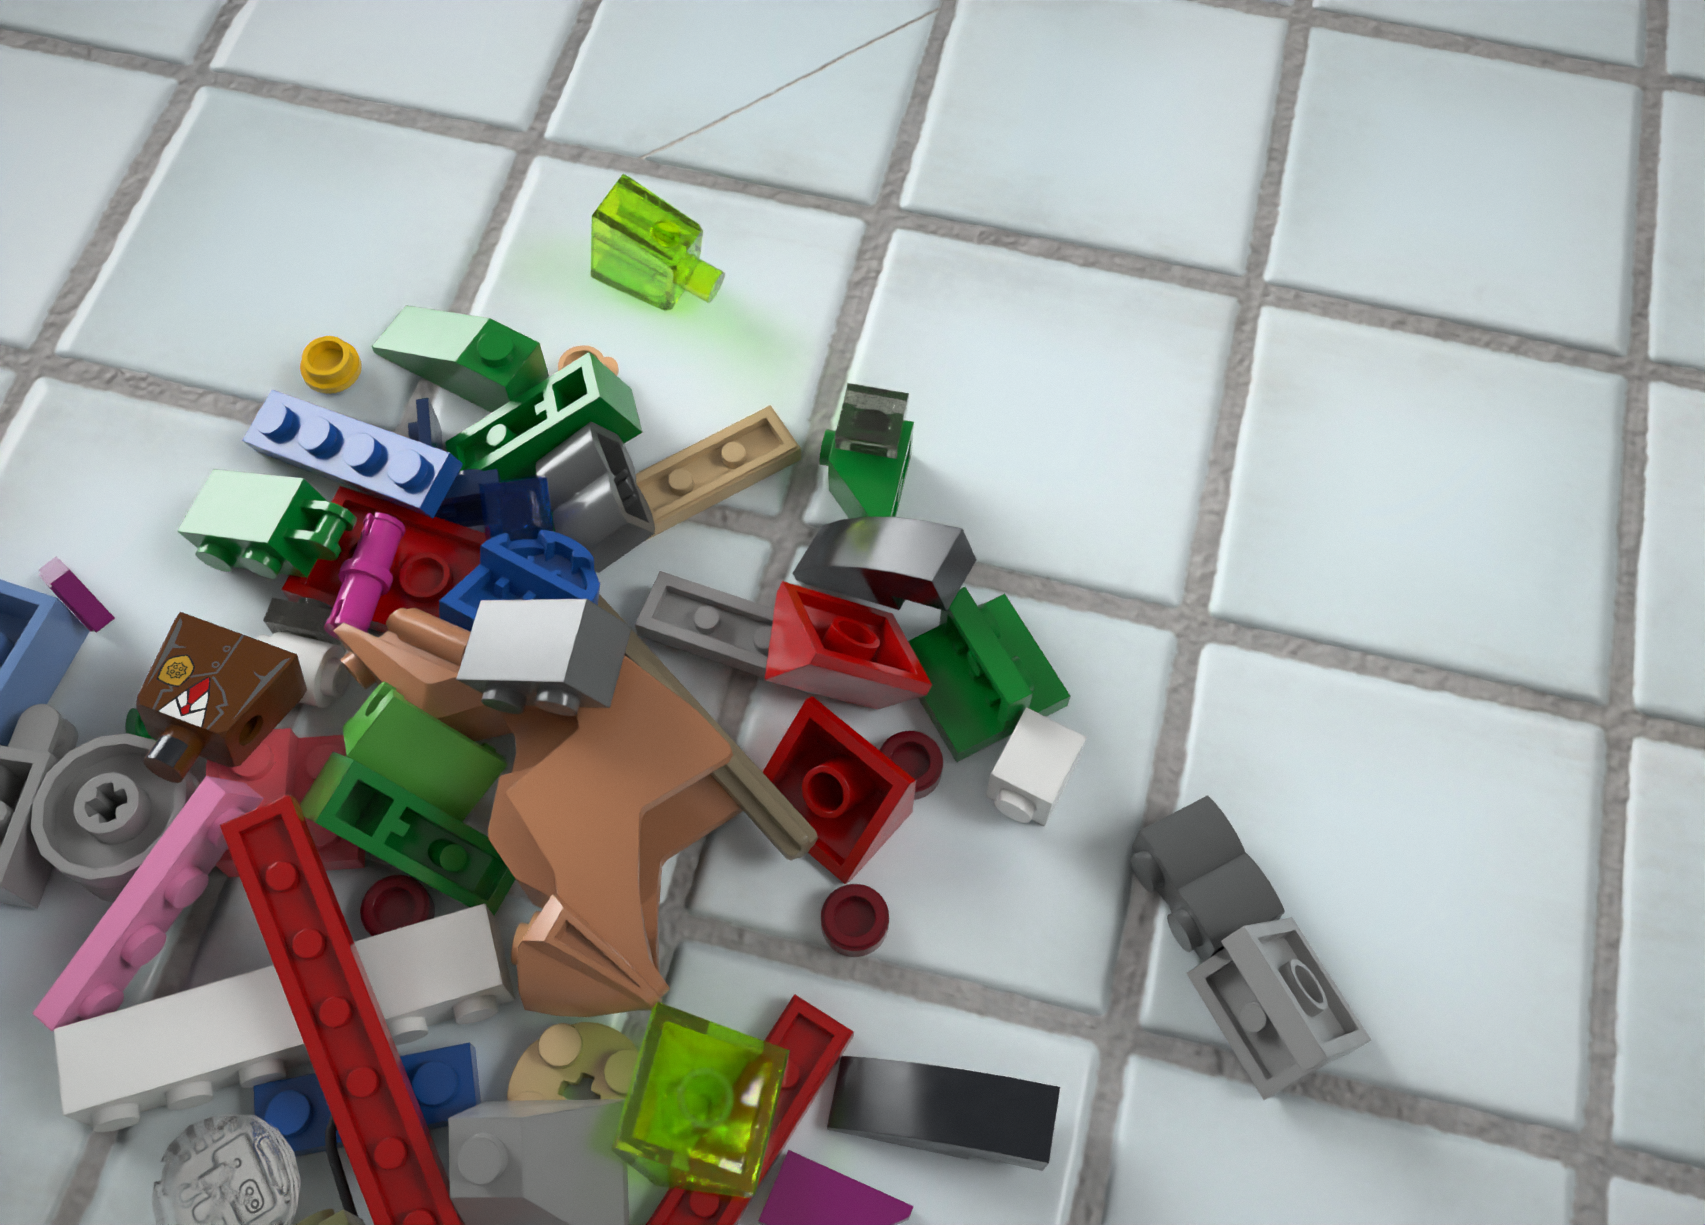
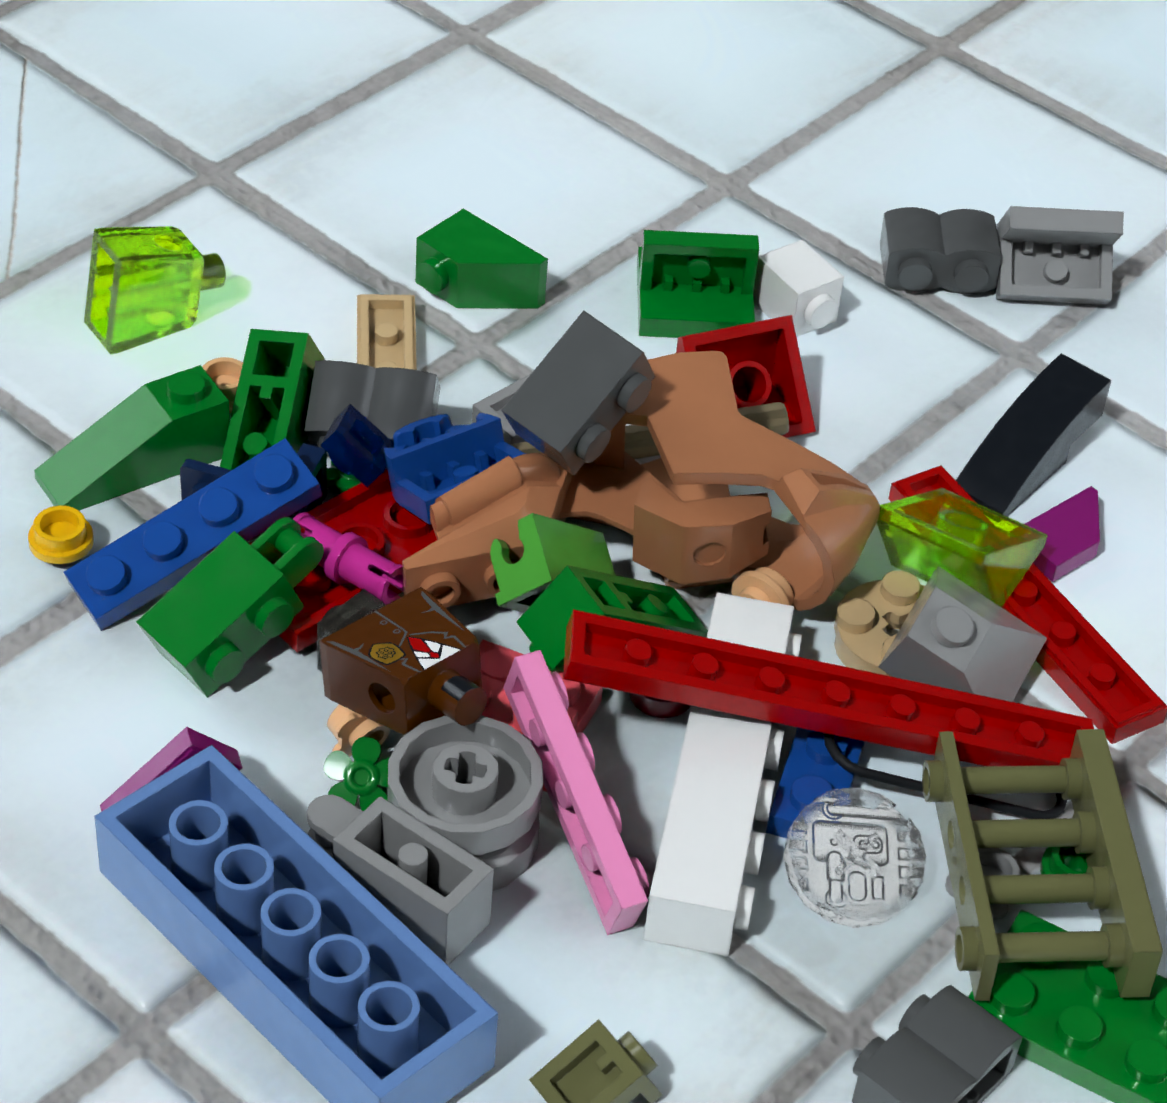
camera: 65 degrees left, 20 degrees down
(841, 650) = (655, 317): red slope -> none
(854, 920) = (849, 436): dark red tile -> none
(871, 420) = (456, 214): clear smoke plate -> none
(889, 561) = (576, 270): black slope -> none

